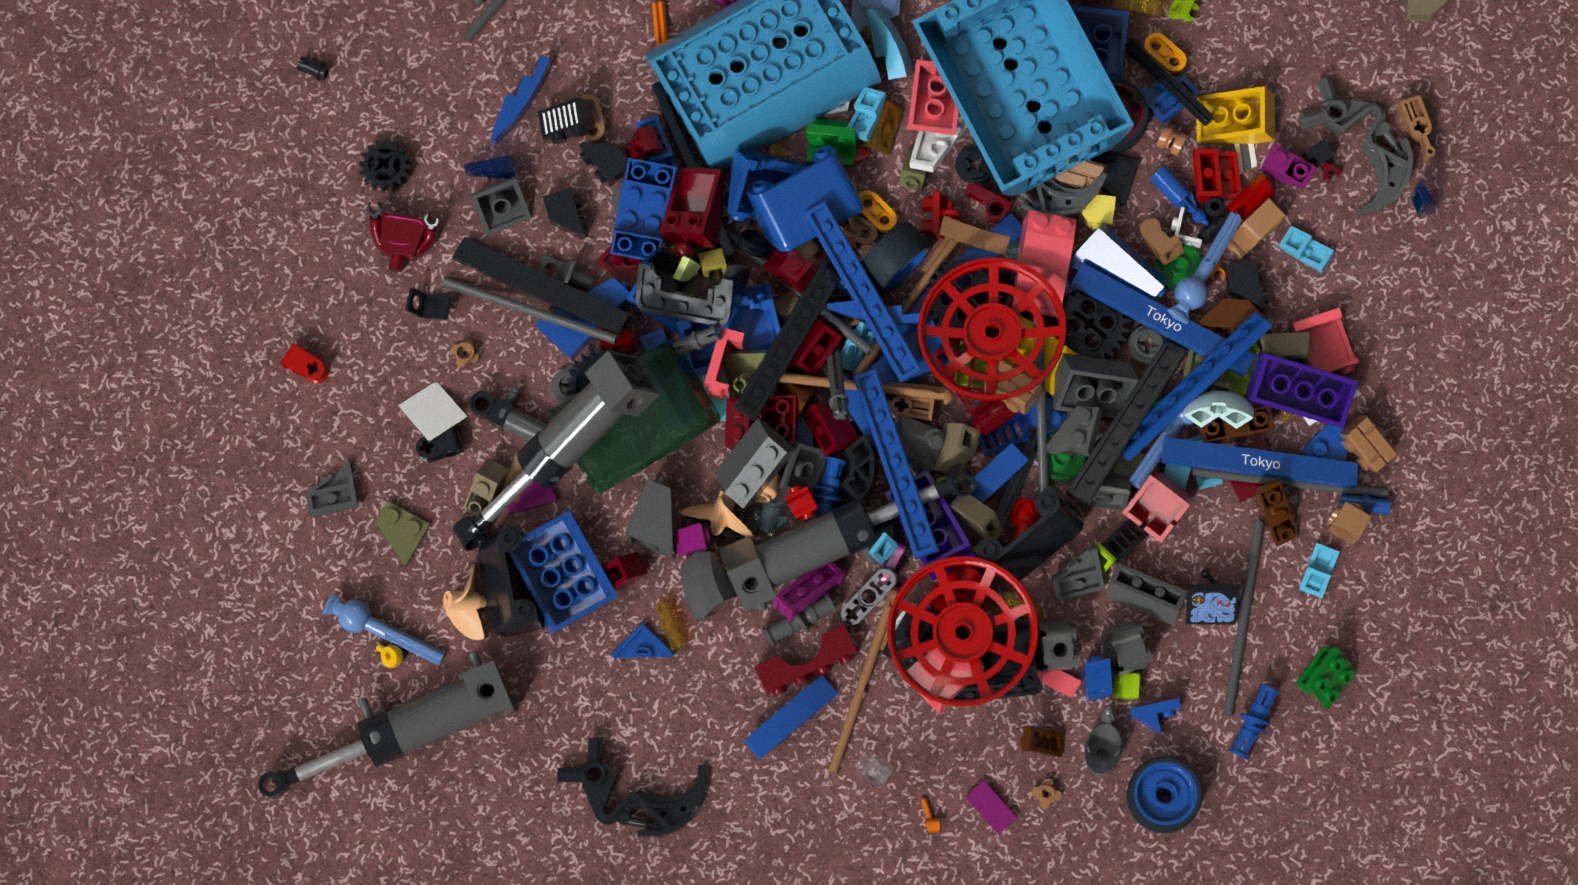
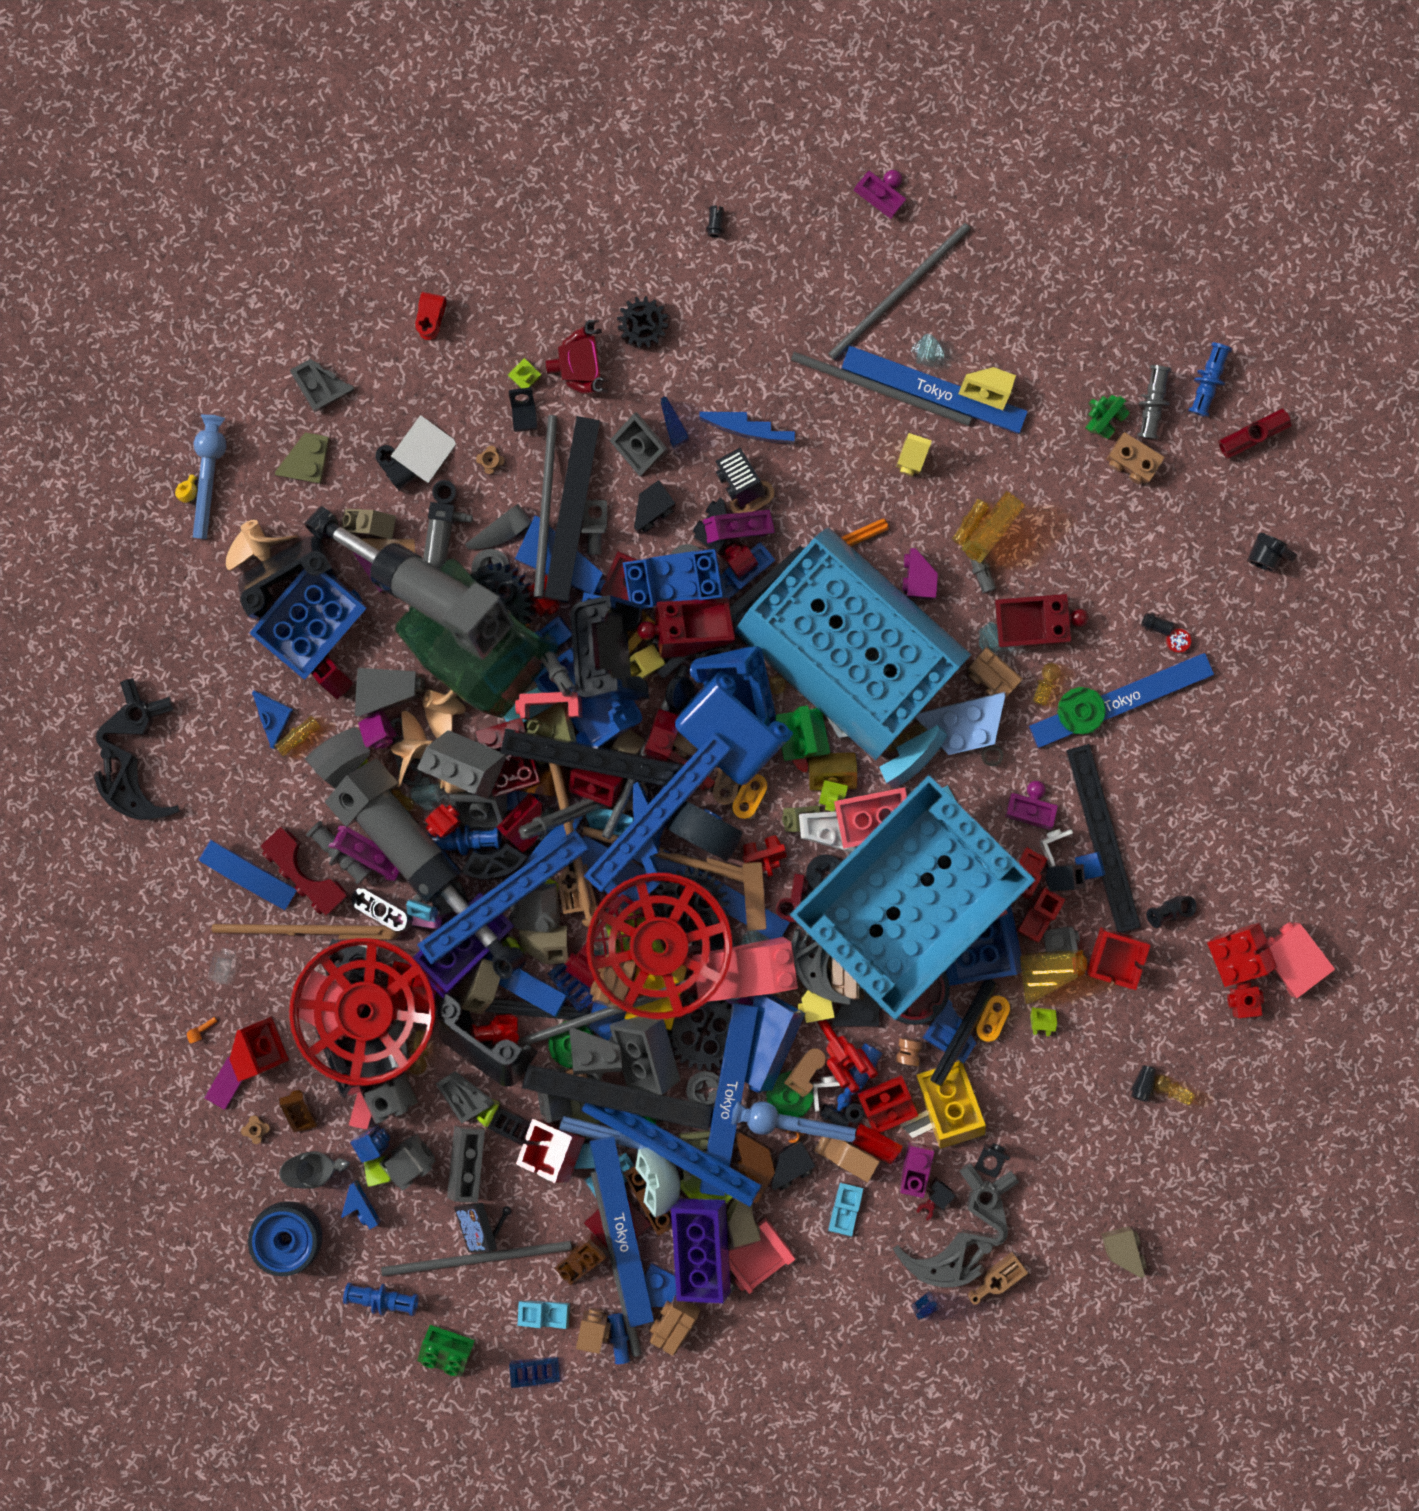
camera: 65 degrees right, 10 degrees up
(394, 294) = (524, 374): none -> lime tile
(413, 724) = (126, 533): dark grey piece -> none
(537, 363) = (502, 529): none -> dark grey piece
(612, 134) = (738, 525): none -> magenta container
(686, 269) = (628, 639): yellowish green tile -> none
(691, 478) = (440, 710): none -> light nougat piece
(867, 113) = (841, 757): medium azure slope -> none
(899, 133) = (832, 792): none -> lime tile
(968, 763) = (257, 1049): none -> red slope
(1157, 198) = (844, 1057): none -> red plant
(1295, 89) = (996, 1151): none -> black bracket
(1370, 616) = (535, 1380): none -> clear blue slope

